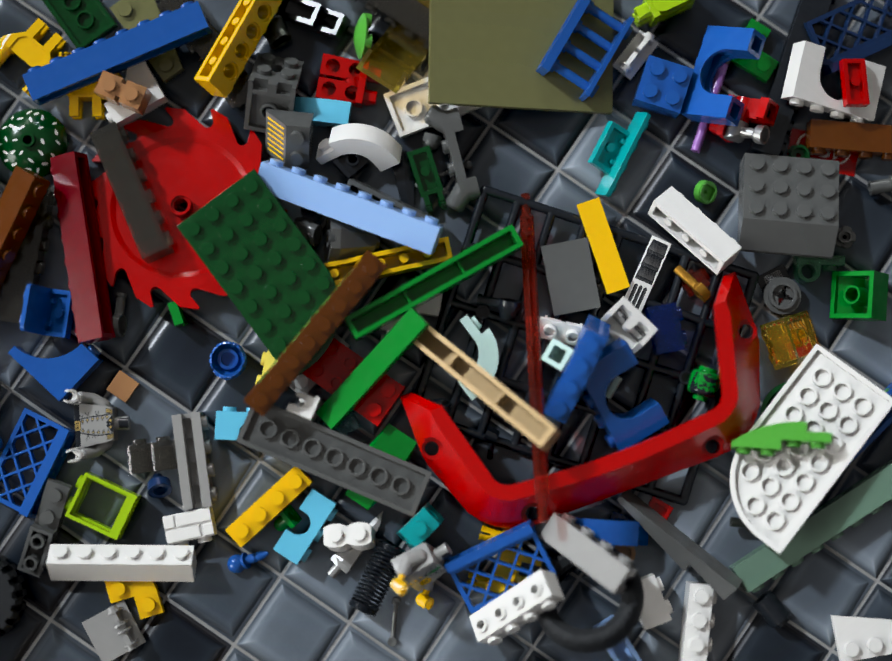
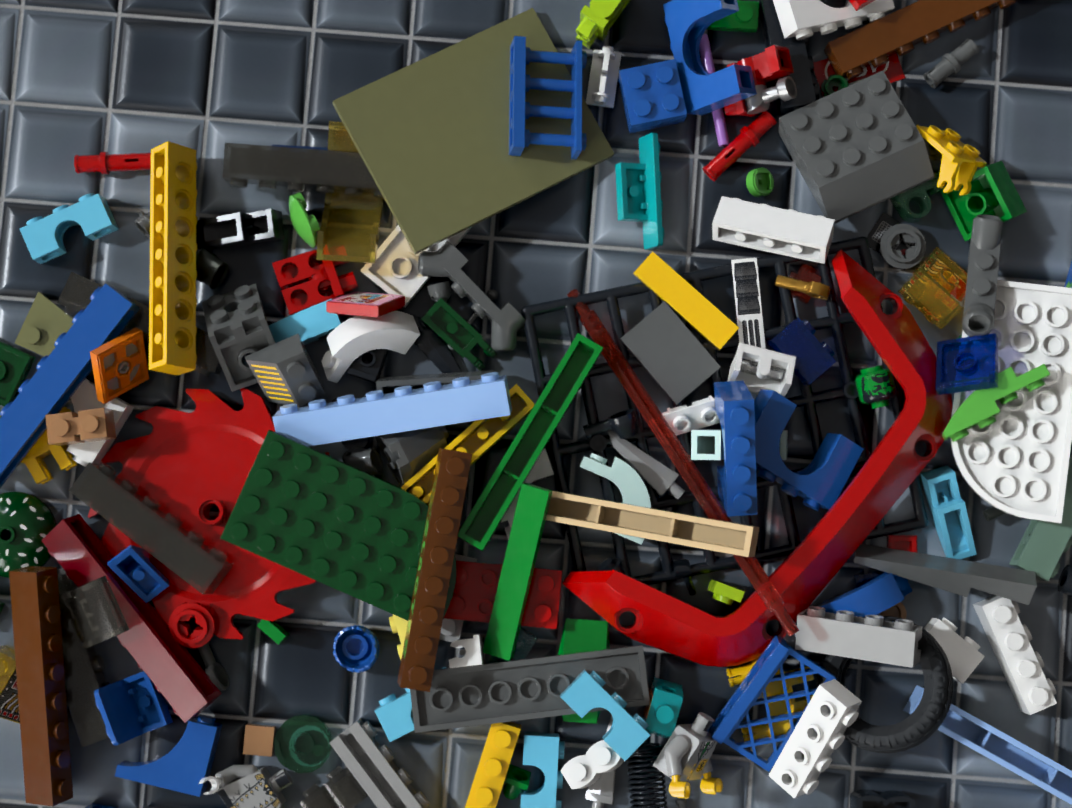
camera: 25 degrees left, 0 degrees up
(59, 229) = (94, 612): none -> clear smoke slope
(105, 218) = (138, 572): none -> blue slope
(112, 277) = (181, 630): none -> red gear
(152, 406) = (303, 743): none -> clear green tile
(174, 65) = (119, 365): none -> orange piece
(373, 119) = (365, 304): none -> tile
(386, 524) = (626, 730): none -> medium azure arch
(510, 355) = (654, 472): none -> light grey bar
(512, 469) = (725, 593): none -> lime plate
(705, 504) = (948, 512): none -> medium azure slope
(714, 155) = (748, 137): none -> red pin
(777, 403) = (967, 364): none -> clear blue plate
(825, 347) = (982, 275): none -> dark grey plate
(855, 250) = (957, 160): none -> yellow plate

